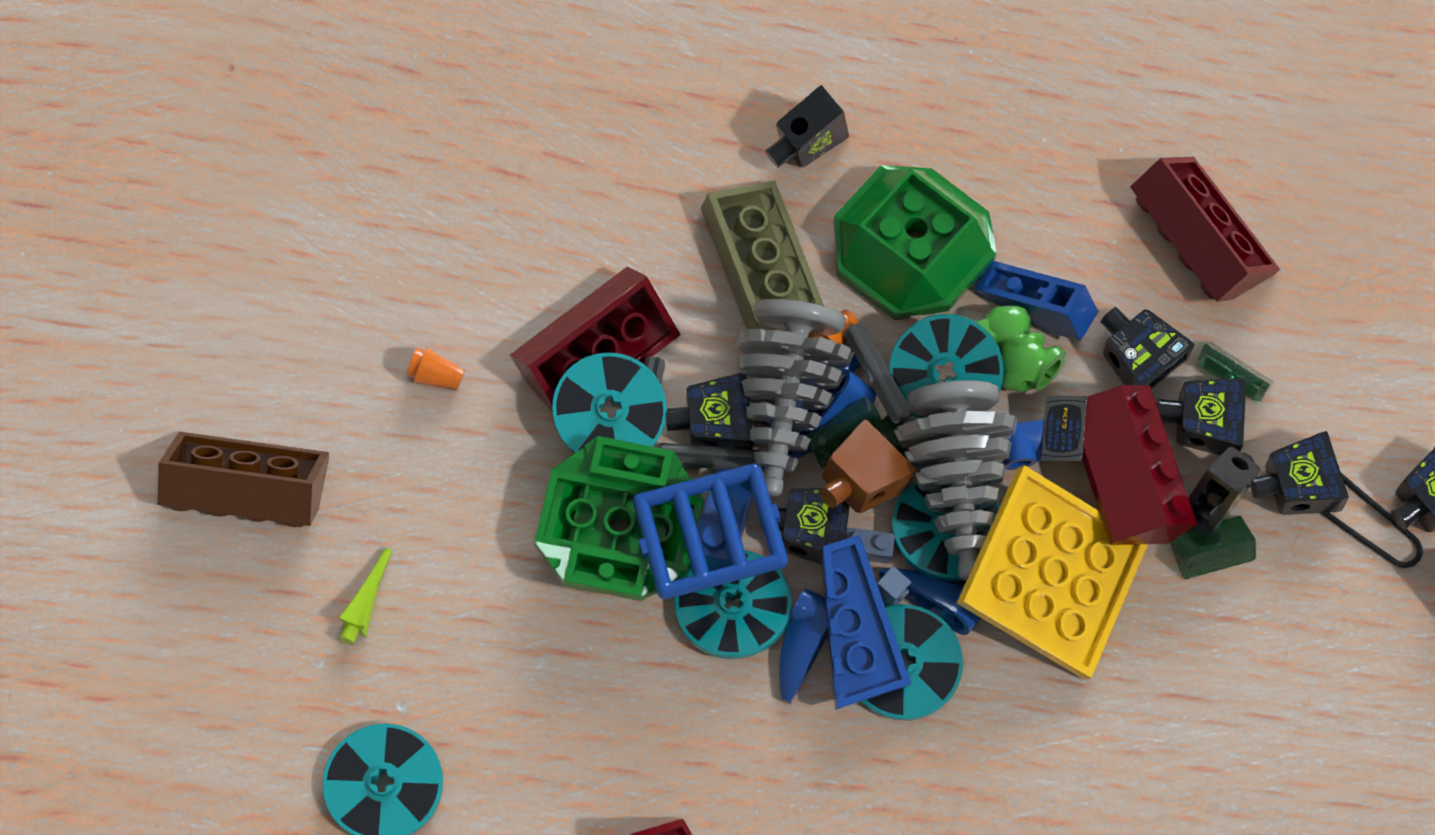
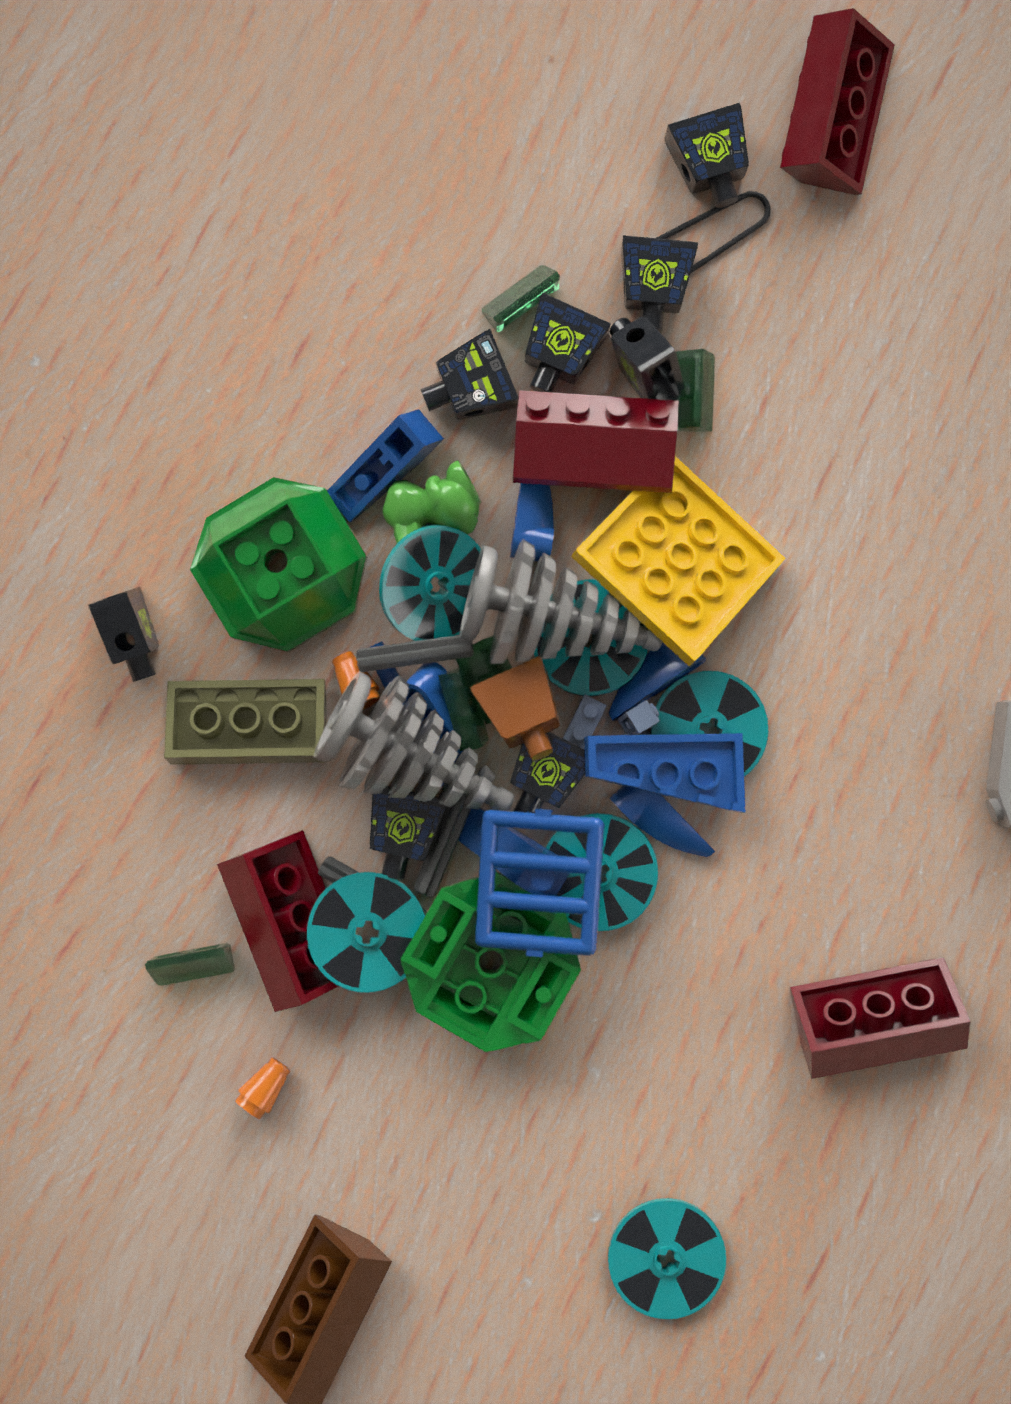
camera: 70 degrees left, 20 degrees up
(359, 611) = (491, 1233): lime piece -> none
(527, 276) = (191, 964): none -> clear green slope
(1064, 428) = (536, 492): sticker -> none
(1203, 228) = (362, 268): dark red slope -> none

